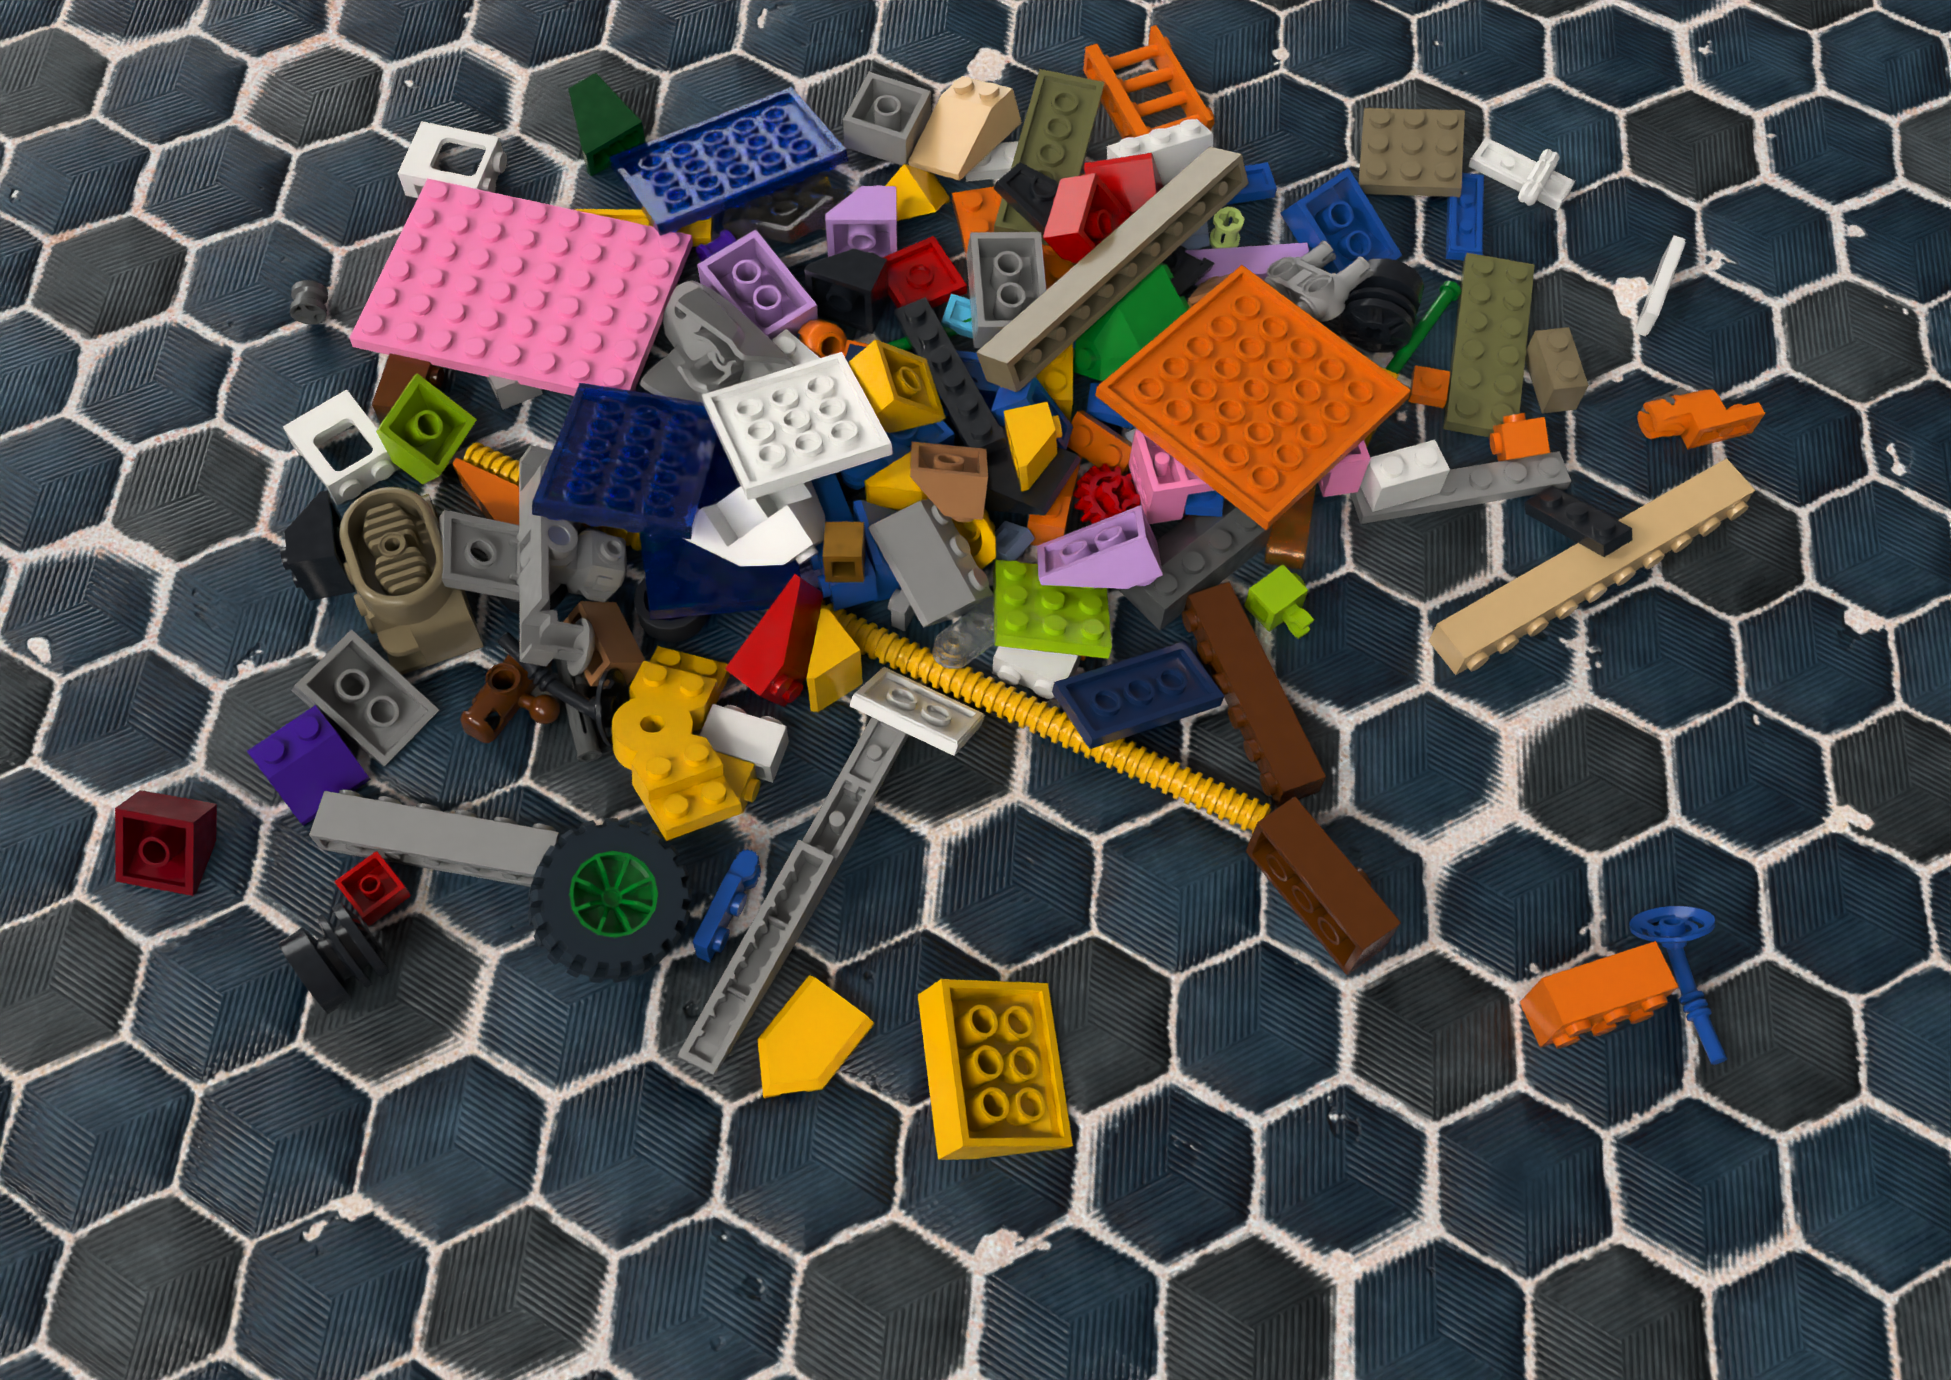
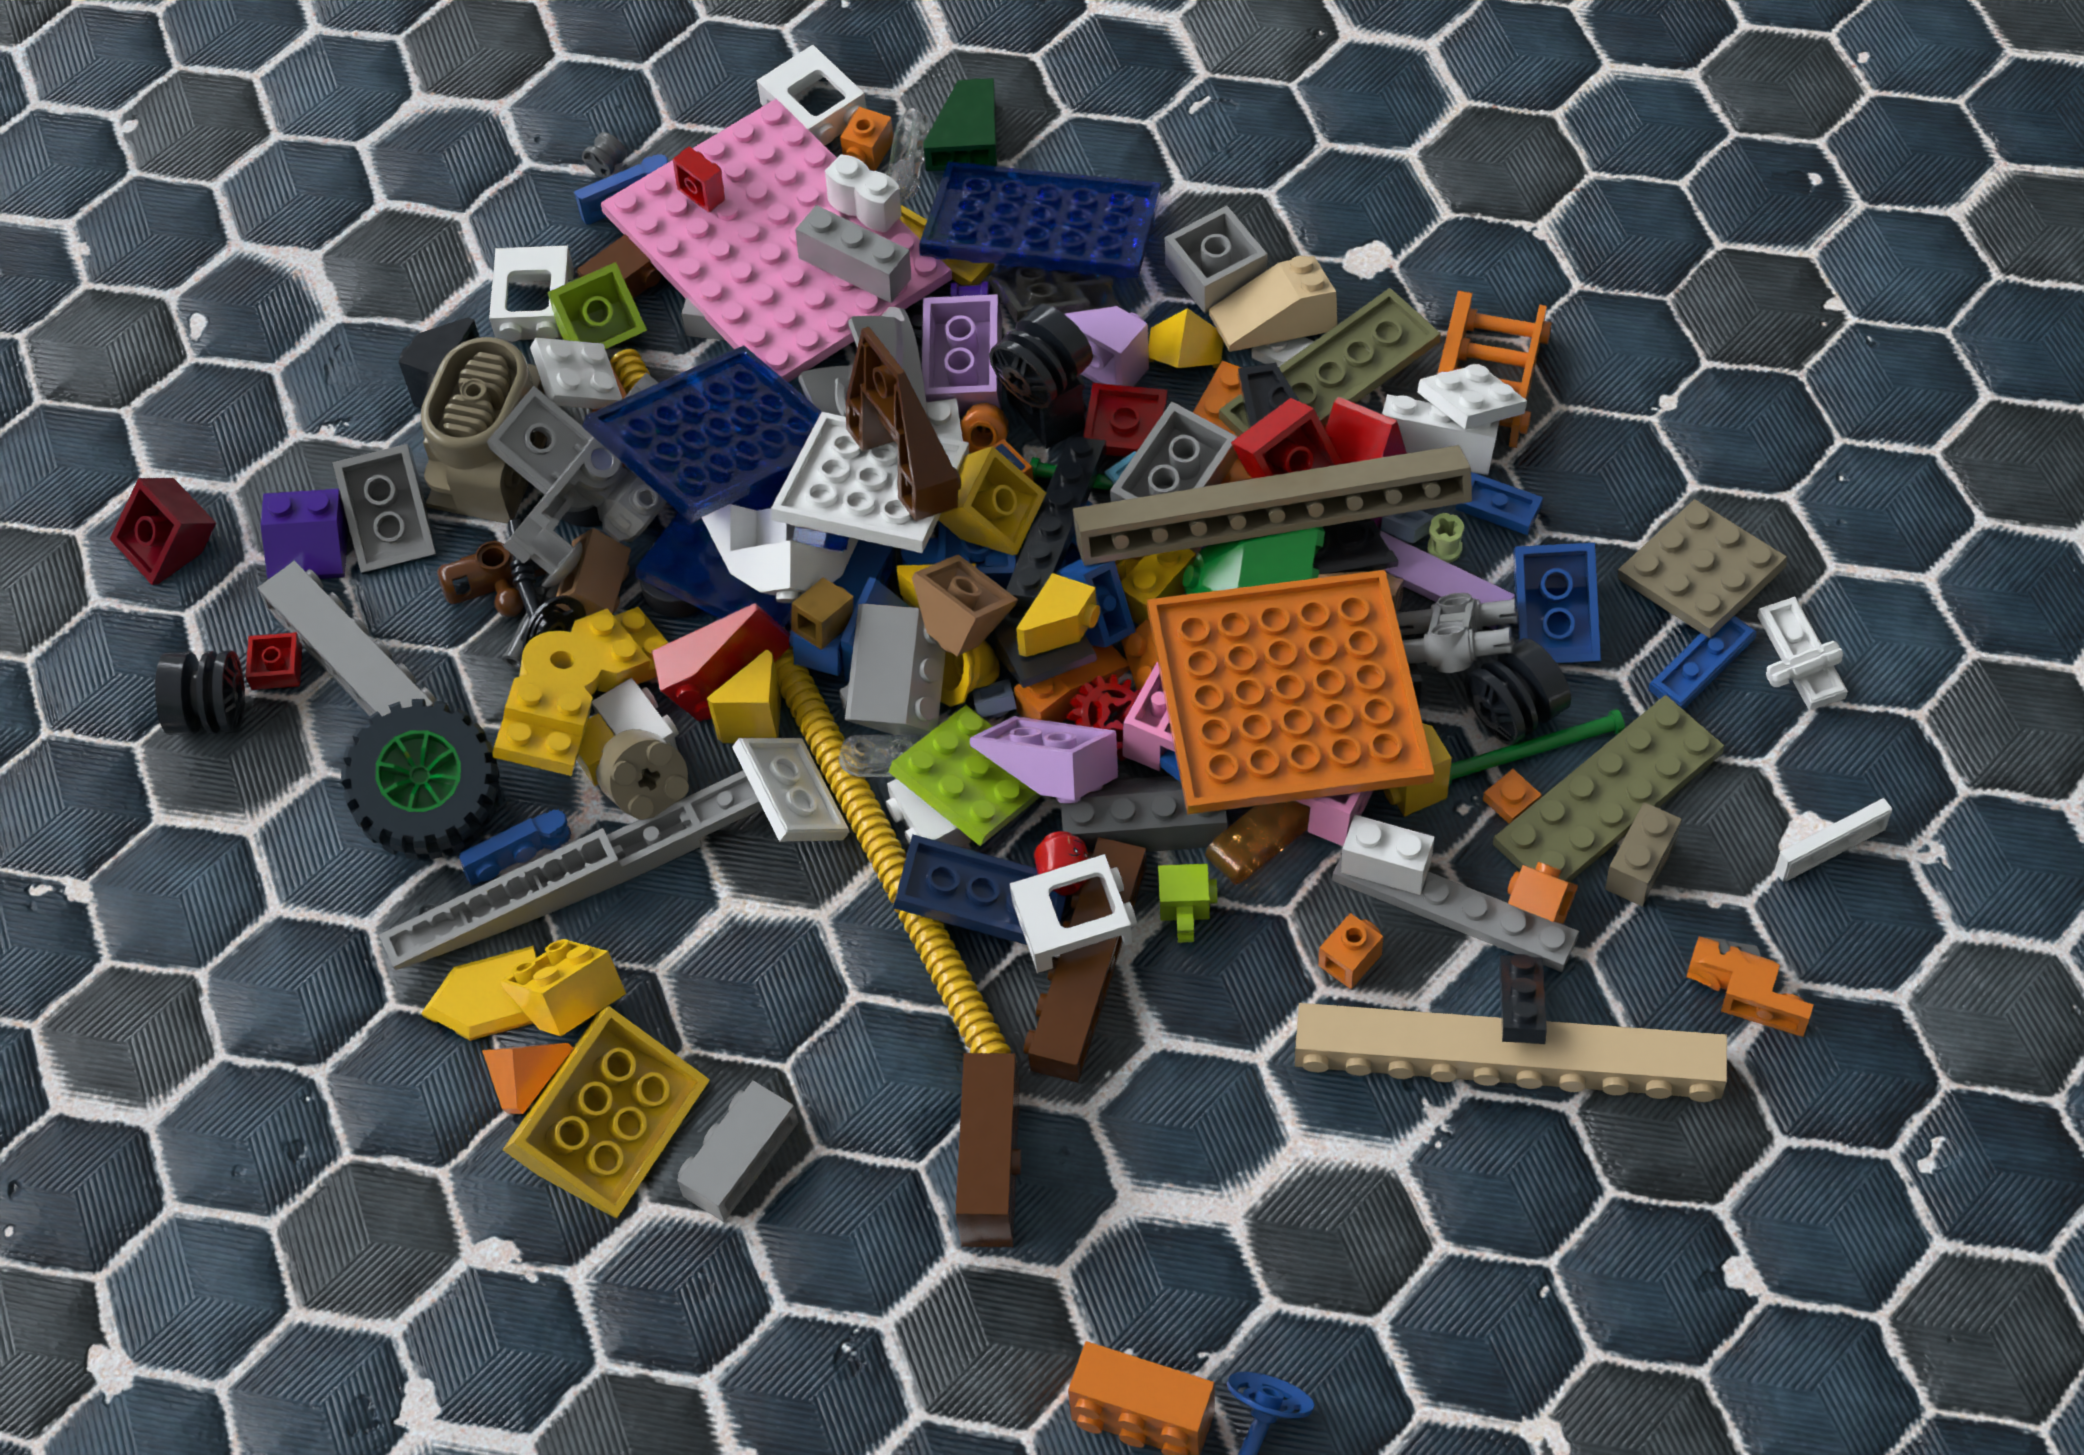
camera: 45 degrees right, 5 degrees down
(334, 341) = (591, 196): none -> blue hinge
(429, 269) = (699, 179): none -> red piece
(456, 484) = (575, 373): none -> white plate
(526, 180) = (867, 137): none -> orange brick
(570, 169) = (908, 152): none -> clear plate
(577, 209) = (863, 193): none -> white brick
(612, 259) = (853, 253): none -> light grey brick
(791, 494) = (820, 539): none -> clear blue tile
(793, 774) = (622, 779): none -> dark tan brick
(800, 335) = (887, 410): none -> reddish brown wedge
(852, 249) = (1041, 356): none -> black wheel
(874, 989) = (564, 985): none -> yellow slope
(897, 1083) = (523, 1072): none -> orange slope
(1124, 1023) = (737, 1150): none -> light grey brick
(1170, 112) = (1472, 396): none -> white plate
(1182, 631) = (1058, 851): none -> red head
(1216, 686) = (1039, 921): none -> white window
(1428, 564) = (1351, 950): none -> orange brick

